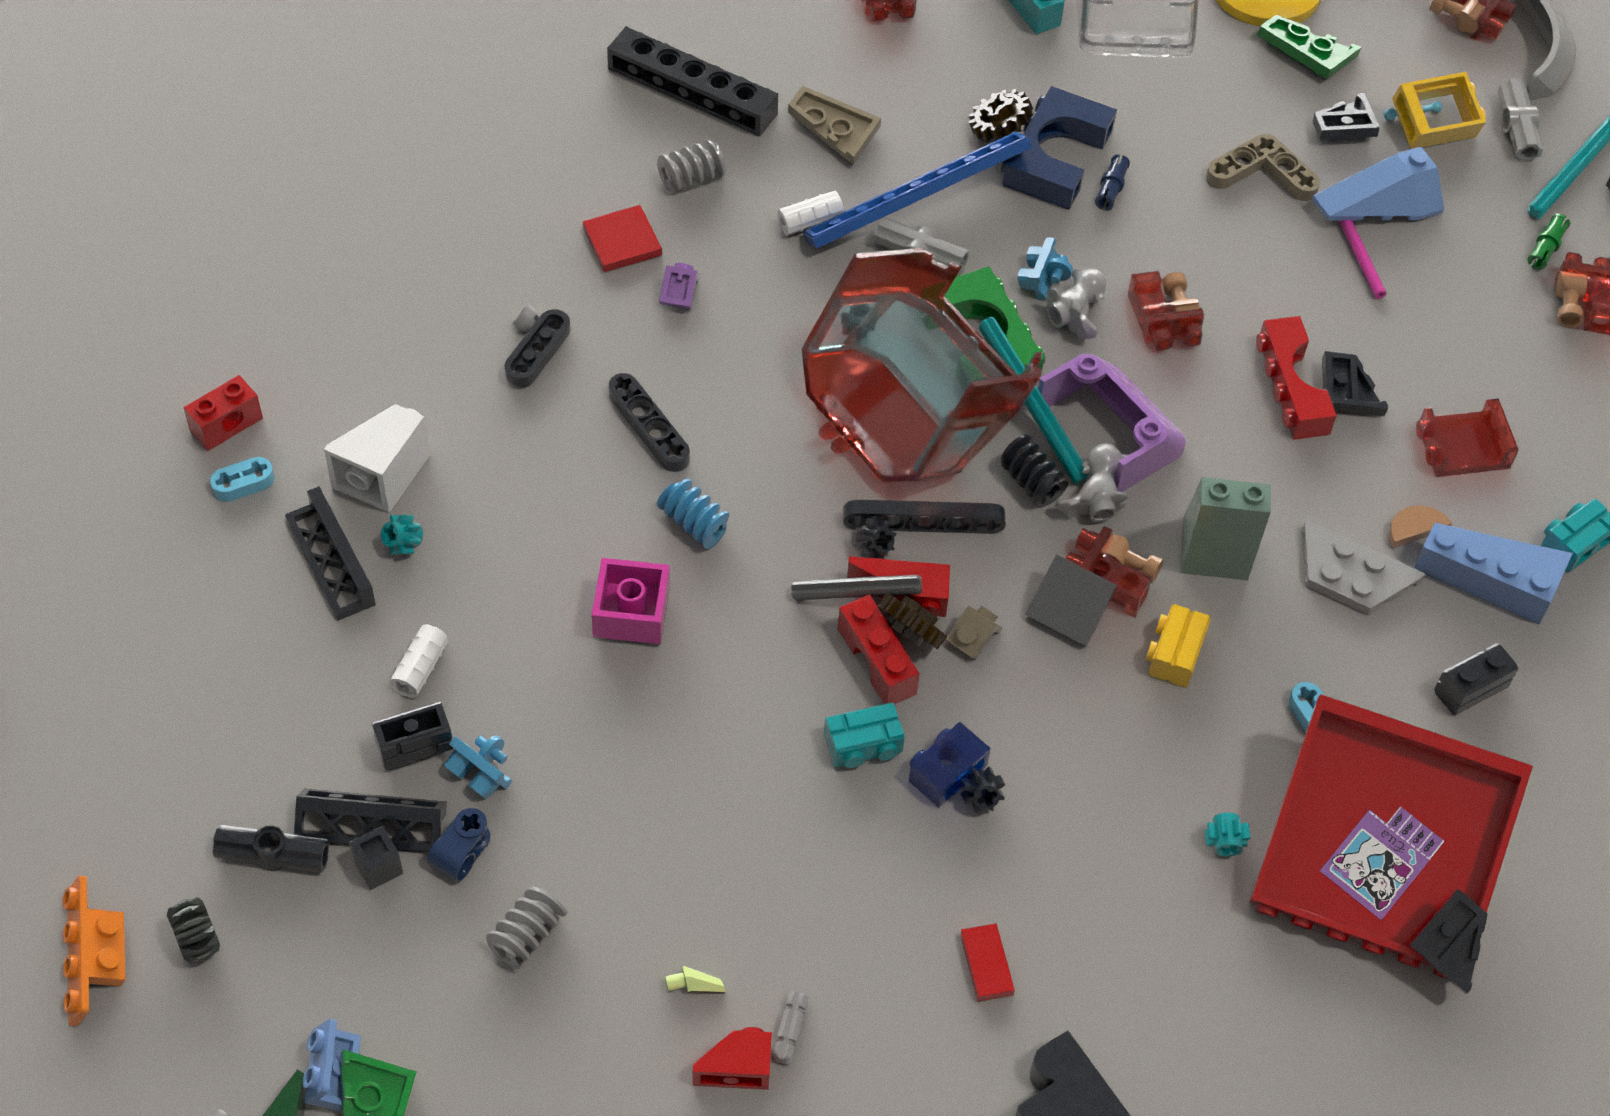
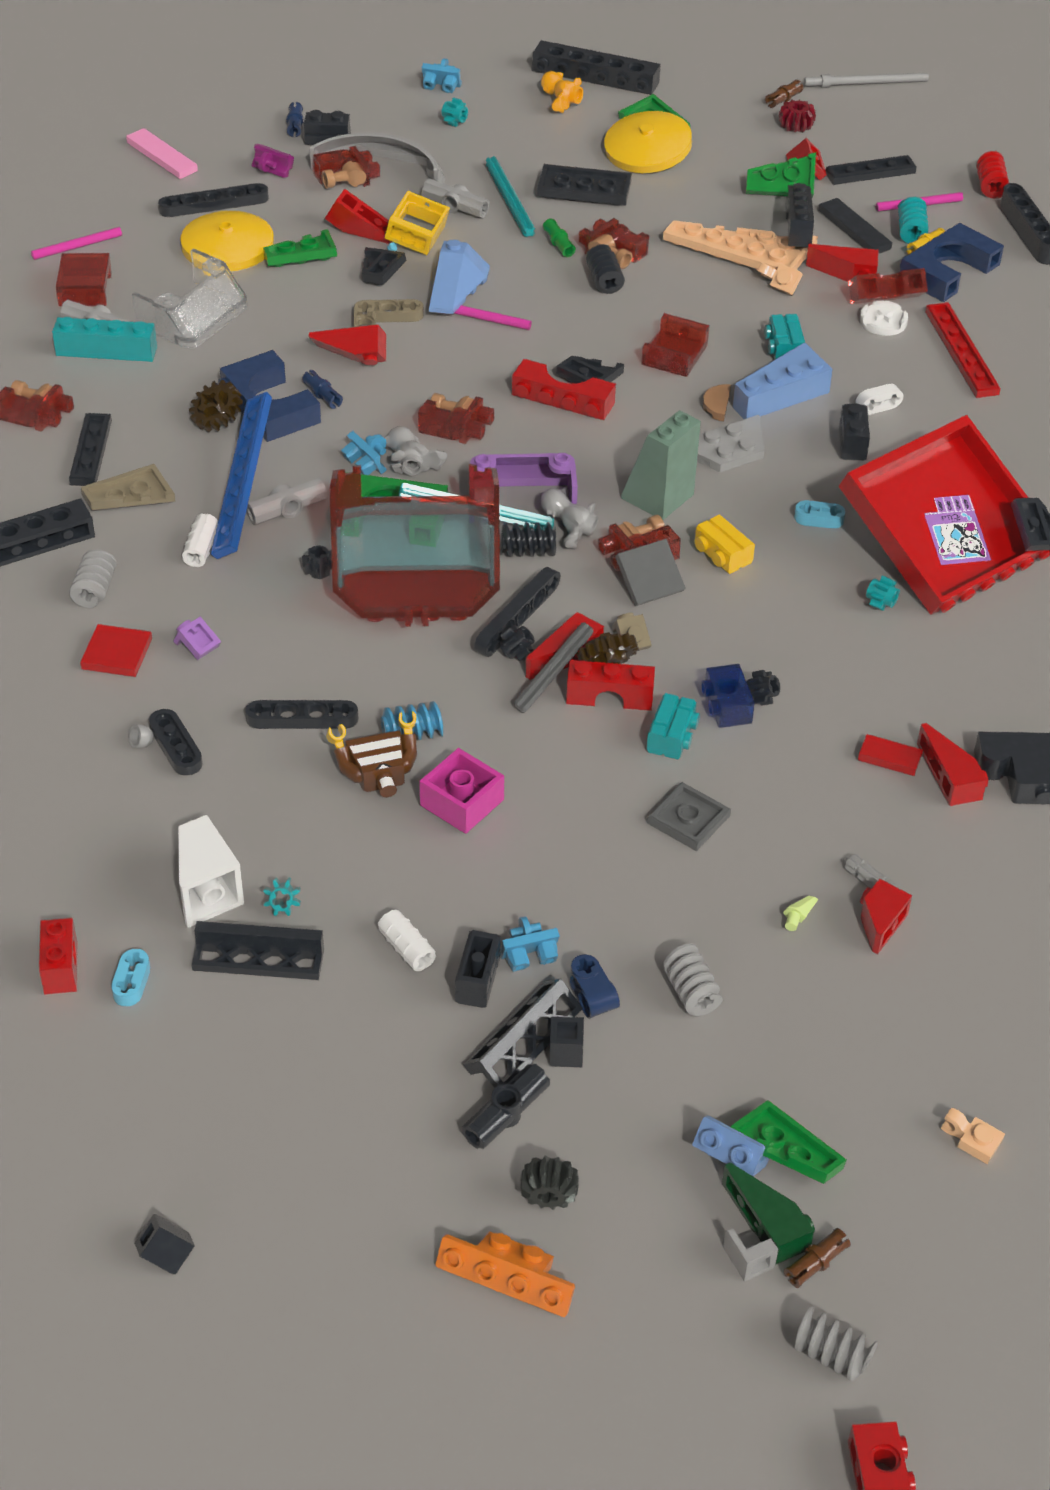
camera: 55 degrees left, 10 degrees down
(627, 512) = (378, 759): none -> reddish brown torso
(757, 816) = (689, 816): none -> dark grey tile
(869, 63) = (90, 449): none -> black tile
(997, 1043) = (952, 767): none -> red slope
(1195, 169) = (359, 343): none -> red slope
(1397, 55) = (357, 218): none -> red slope
(1530, 308) = (605, 269): none -> black piece
(1563, 677) = (880, 398): none -> white beam

